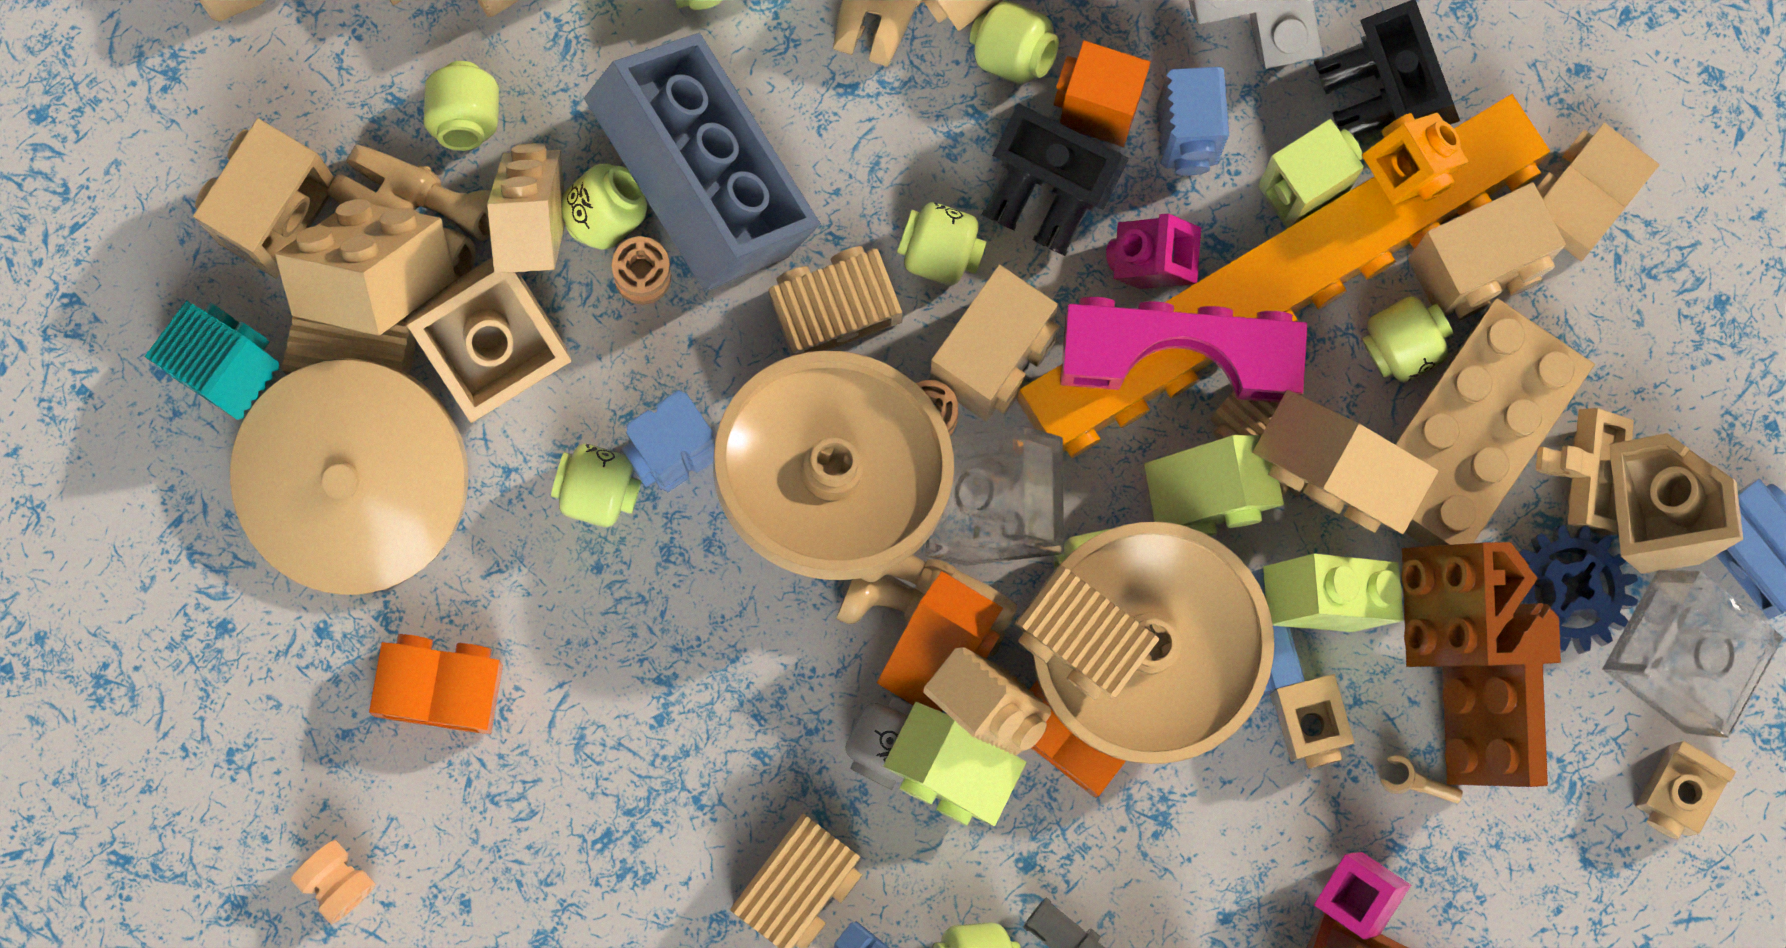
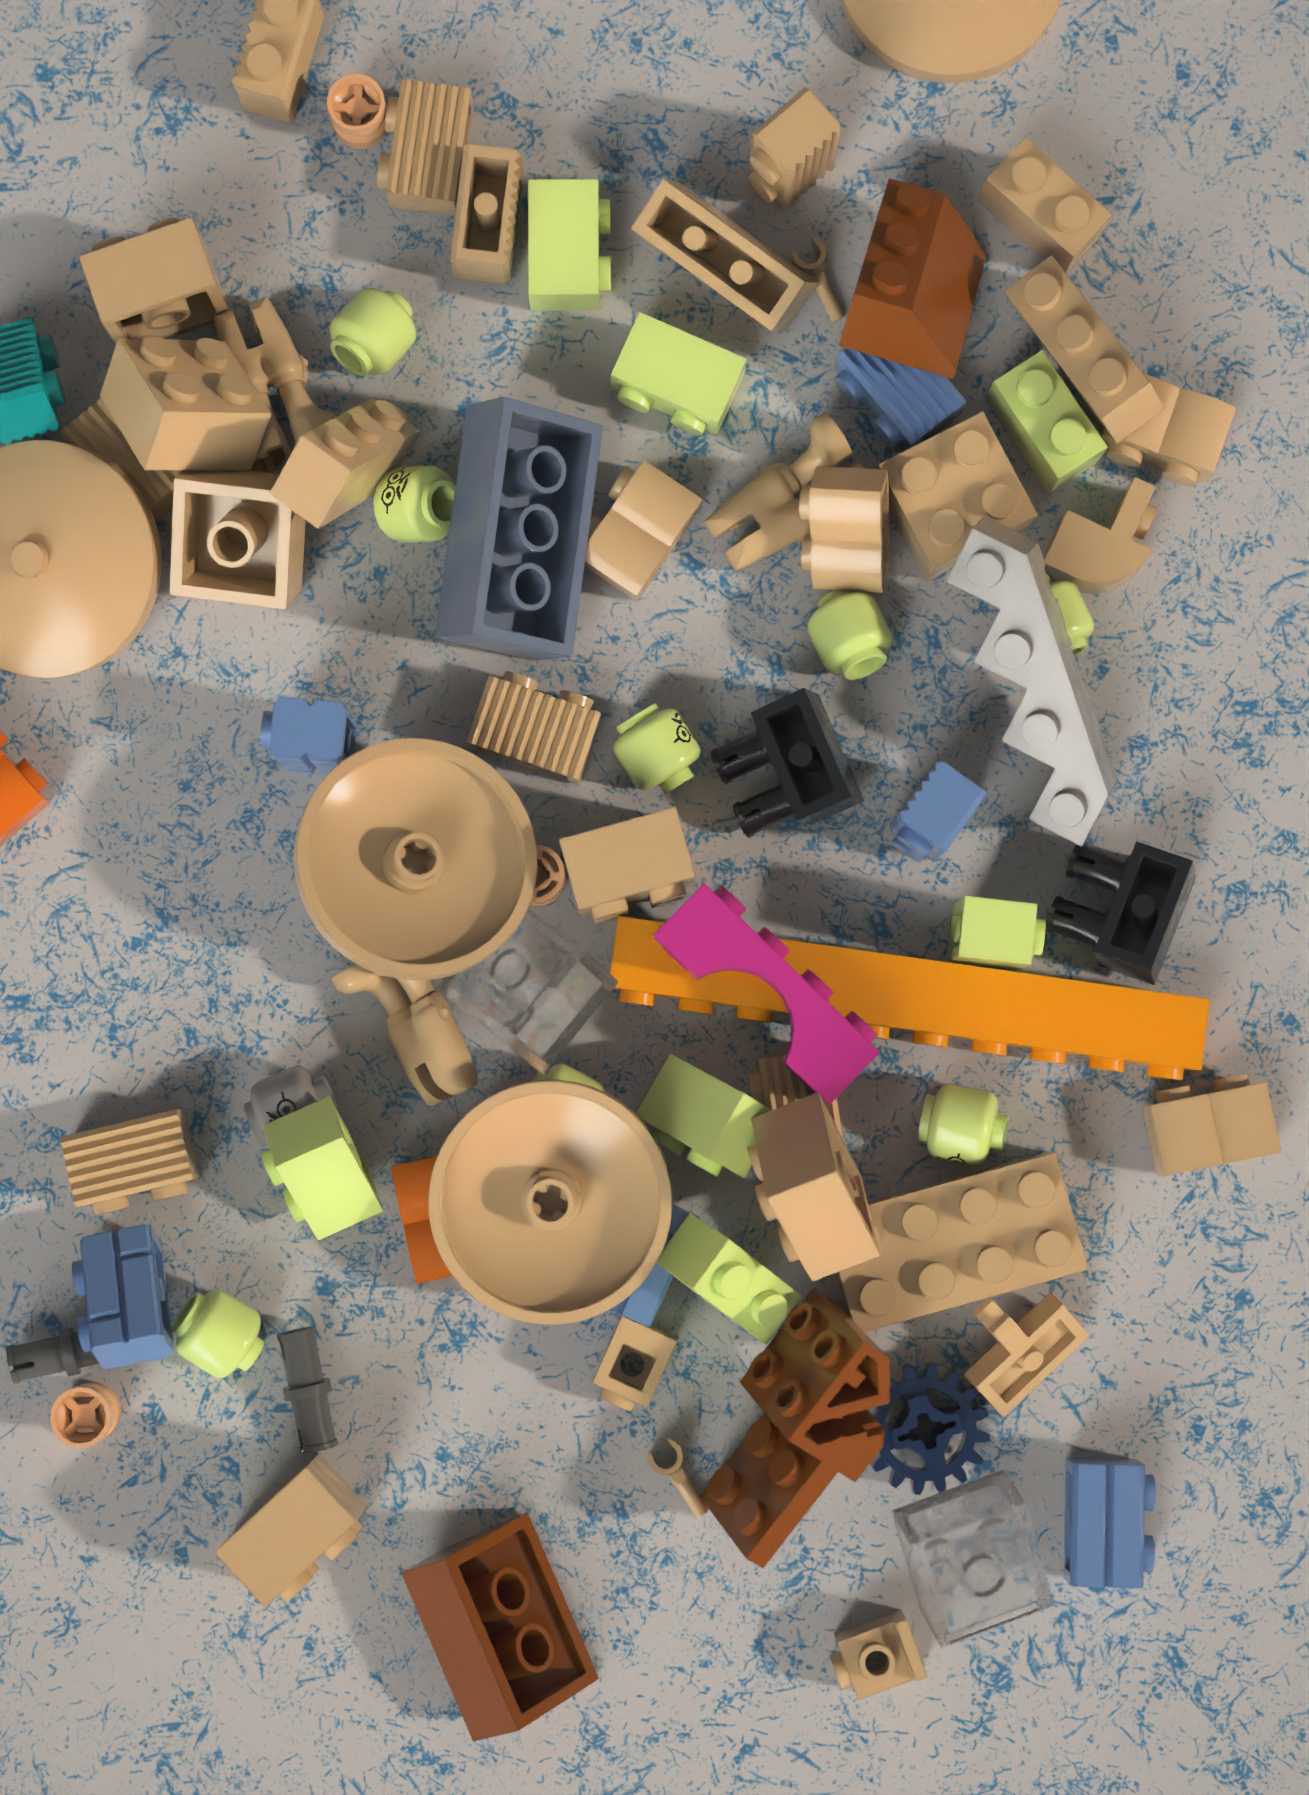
camera: 35 degrees right, 5 degrees up
(595, 485) = (228, 720): yellowish green head -> none
(641, 282) = (412, 586): light nougat wheel -> none
(789, 90) = (639, 528): none -> tan brick
(944, 620) = (389, 1067): orange brick -> none
(988, 702) = (381, 1144): tan brick -> none
(1084, 633) = (495, 1154): tan brick -> none
(1101, 92) = (880, 731): orange brick -> none
(1145, 249) = (810, 884): dark pink brick -> none
(1362, 895) = (555, 1529): dark pink brick -> none
(1416, 157) = (1080, 990): light orange brick -> none
(1486, 252) = (1082, 1109): tan brick -> none
(1671, 504) = (1053, 1427): tan slope -> none

